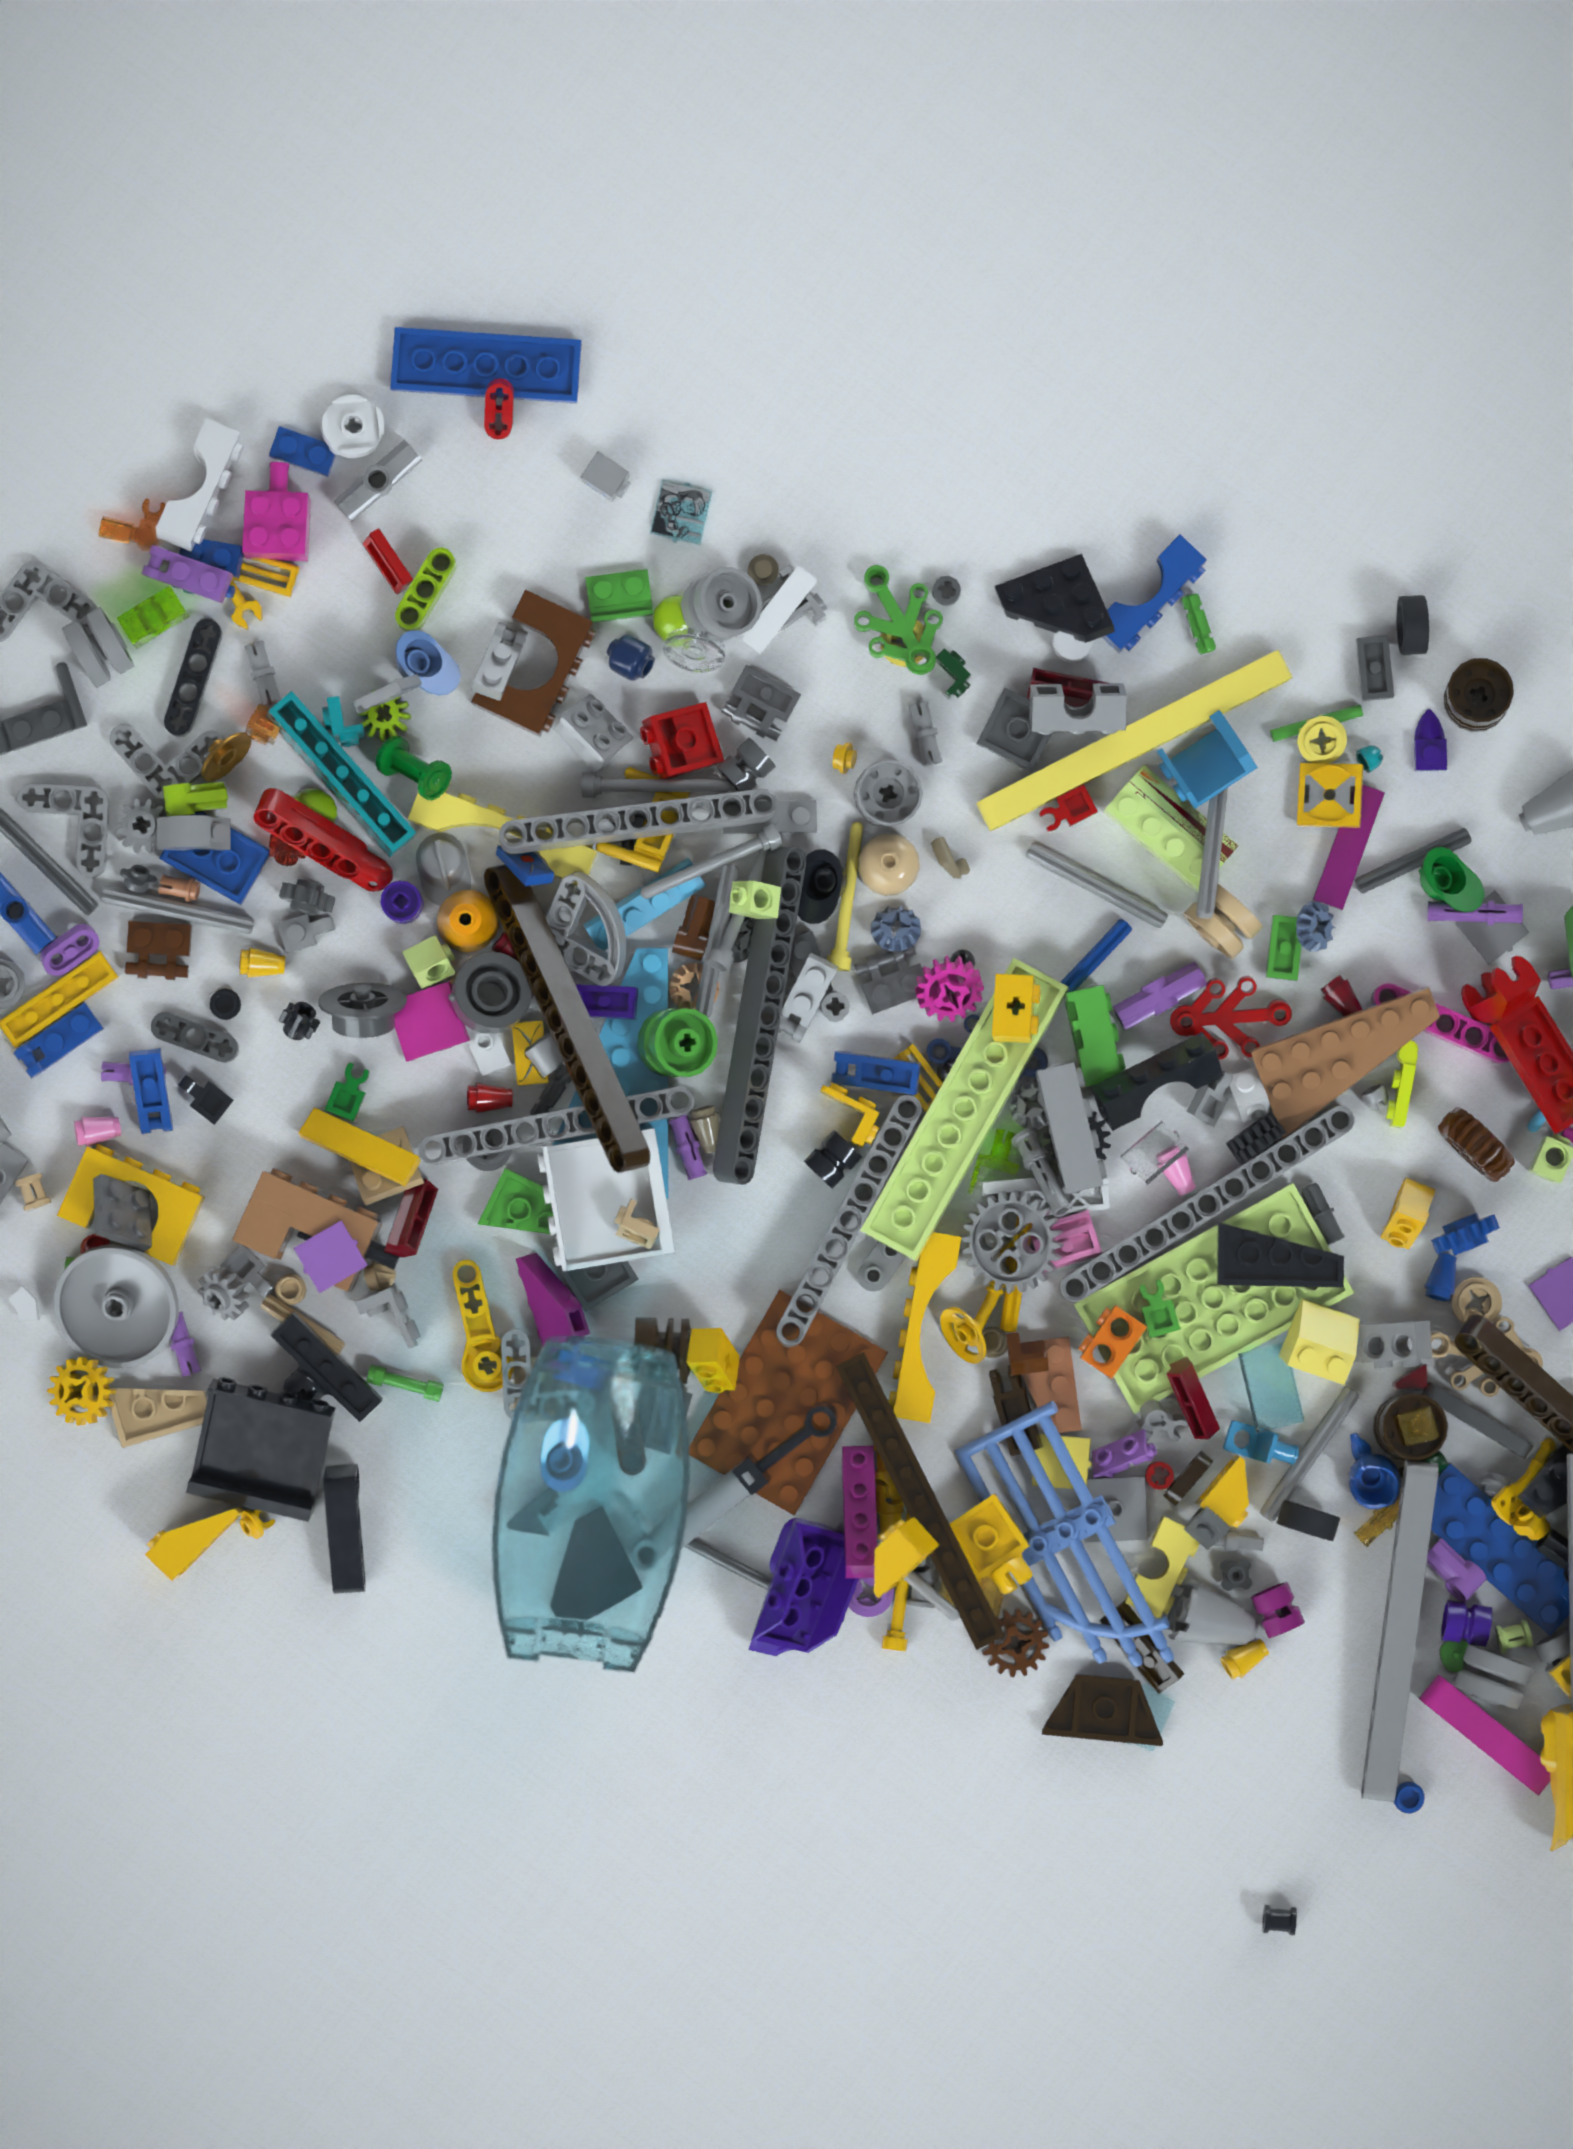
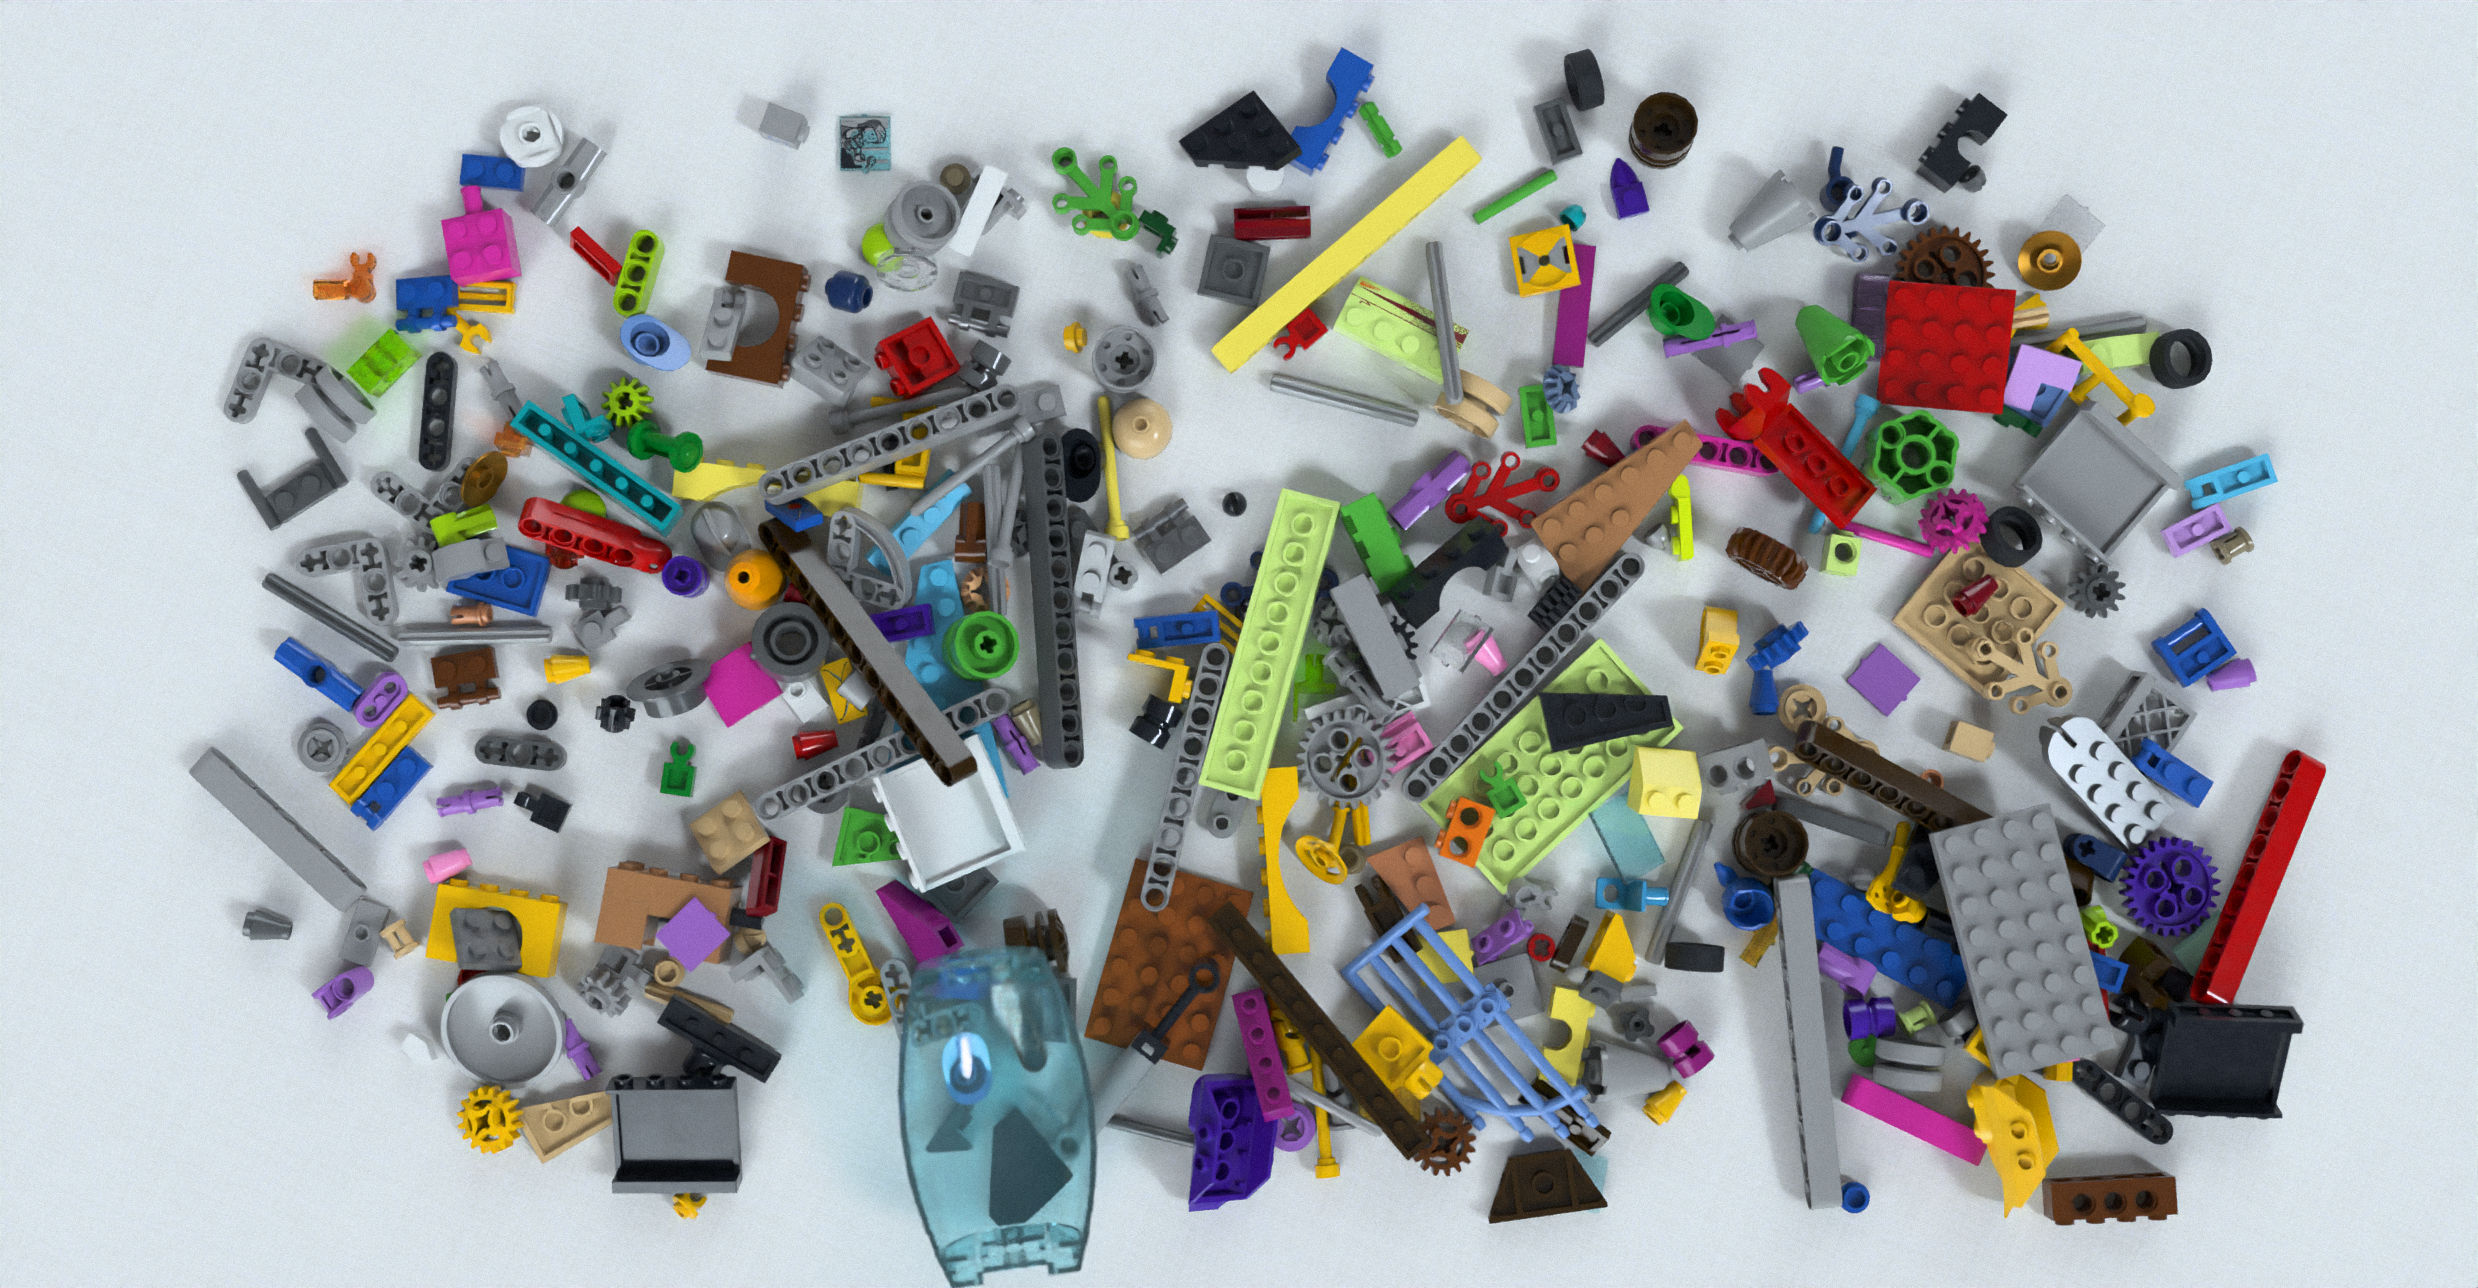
camera: 10 degrees left, 0 degrees up
(137, 878) = (429, 615): dark grey plate -> none
(150, 1090) = (487, 815): blue plate -> none
(179, 1548) = (617, 1251): yellow slope -> none
(184, 519) = (390, 262): white arch -> none
(188, 574) = (406, 314): medium lavender plate -> none
(344, 1528) = (772, 1189): black beam -> none
(359, 1146) = (700, 820): yellow tile -> none
(378, 1376) = (773, 1034): bright green bar -> none
(387, 693) = (619, 379): light grey tile -> none
(430, 961) = (726, 627): yellowish green brick -> none
(469, 361) = (645, 48): blue plate -> none
(492, 408) = (659, 87): red beam -> none
(619, 596) = (825, 236): bright green plate -> none
(635, 1230) = (982, 836): tan bracket -> none
(713, 1359) = (1087, 942): yellow brick -> none
(754, 899) = (1020, 491): yellowish green brick -> none
(900, 1553) = (1311, 1086): yellow slope -> none
(904, 937) = (1173, 493): sand blue gear -> none
(938, 594) = (1141, 151): dark grey bush -> none
(946, 860) = (1195, 411): dark tan arm -> none
(960, 978) = (1222, 544): dark pink gear -> none
(1006, 1025) = (1284, 520): yellow brick -> none
(1026, 1356) = (1386, 865): reddish brown panel -> none
(1097, 955) = (1360, 466): blue axle -> none
(1102, 713) = (1311, 233): light grey arch -> none
(1192, 1399) = (1555, 867): dark red piece -> none
(1208, 764) = (1423, 258): dark azure panel -> none
(1322, 1213) = (1634, 659): dark grey axle -> none
(1332, 748) = (1535, 217): light yellow gear -> none
(1418, 1426) = (1779, 841): clear yellow plate -> none

